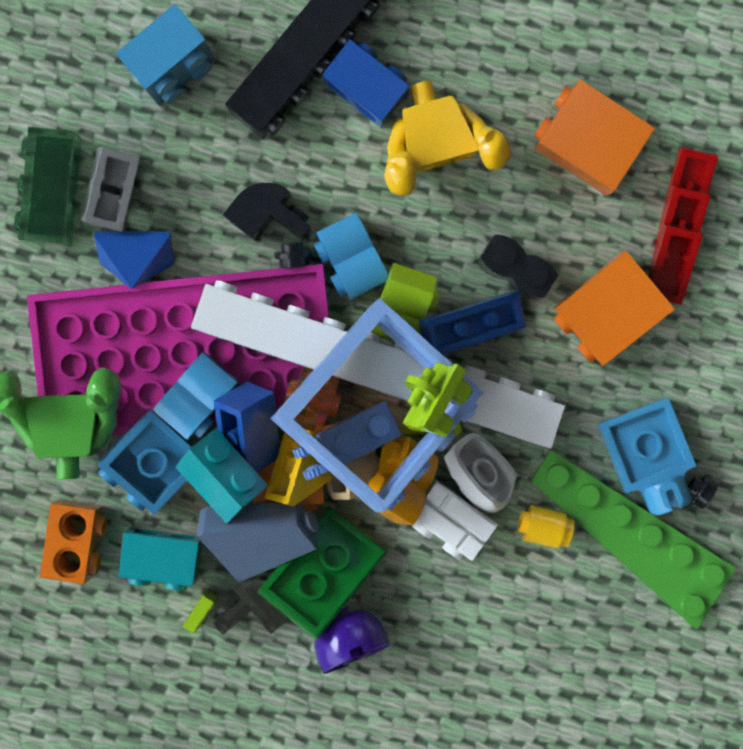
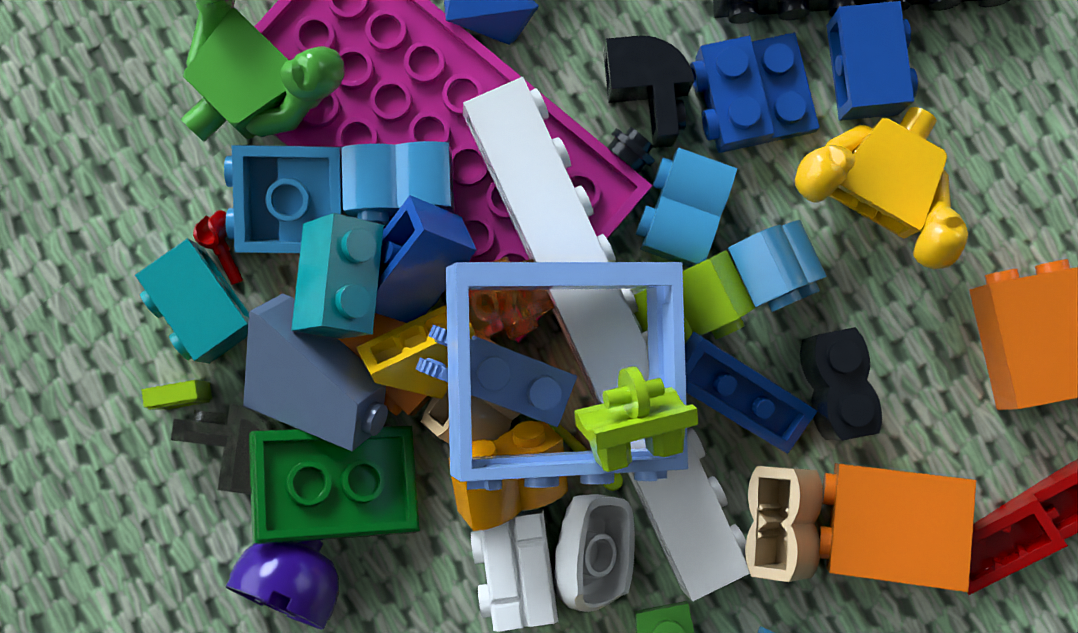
camera: 45 degrees right, 5 degrees down
(63, 538) = (128, 185): orange brick -> none
(130, 518) = (211, 234): none -> red hand
(323, 159) = (753, 91): none -> blue plate
(427, 241) = (778, 265): none -> dark azure brick
(561, 369) = (783, 536): none -> tan brick

